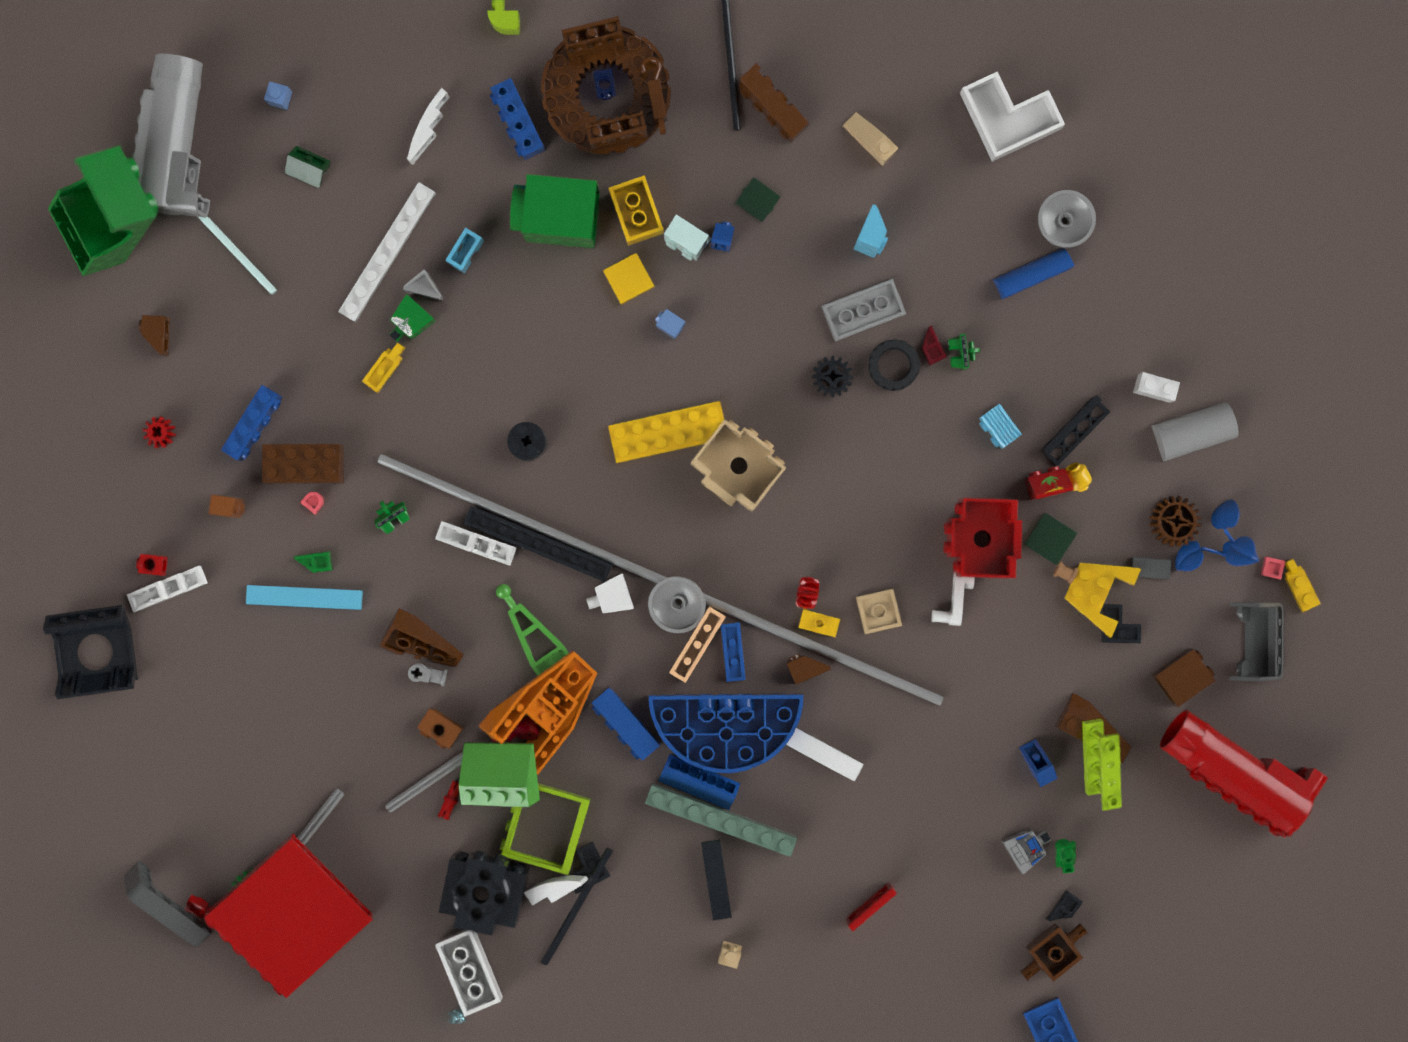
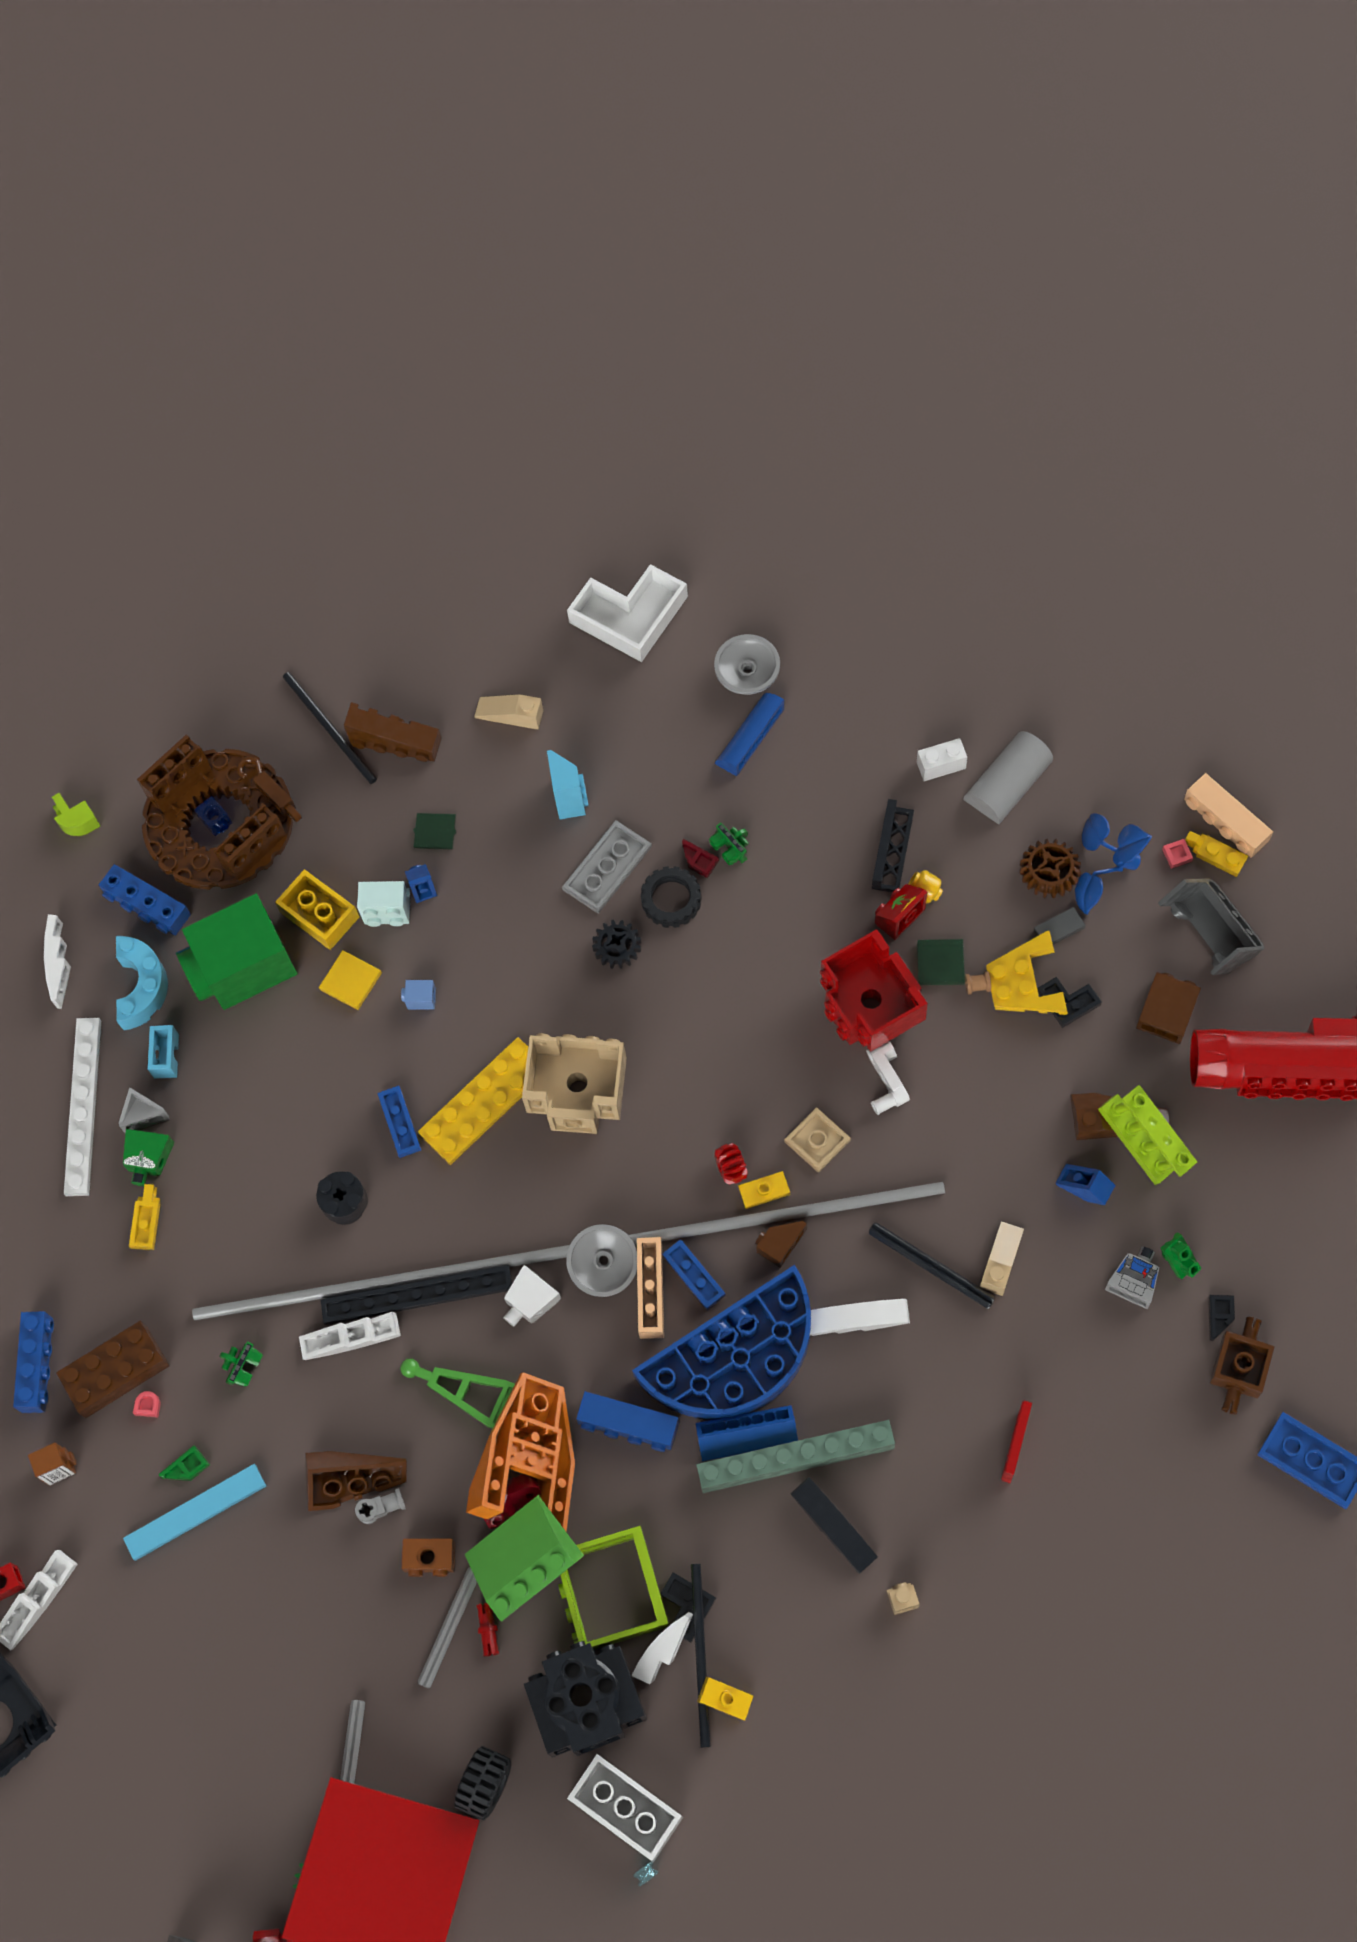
camera: 25 degrees left, 20 degrees down
(387, 899) = (482, 1783): none -> black tyre
(486, 190) = (151, 986): none -> medium azure brick
(575, 943) = (725, 1698): none -> yellow plate
(600, 410) = (399, 1121): none -> blue plate
(896, 749) = (931, 1265): none -> black axle
(947, 776) = (1001, 1258): none -> tan slope
(999, 426) = (815, 888): medium azure brick -> none
(1328, 564) = (1228, 815): none -> light nougat brick

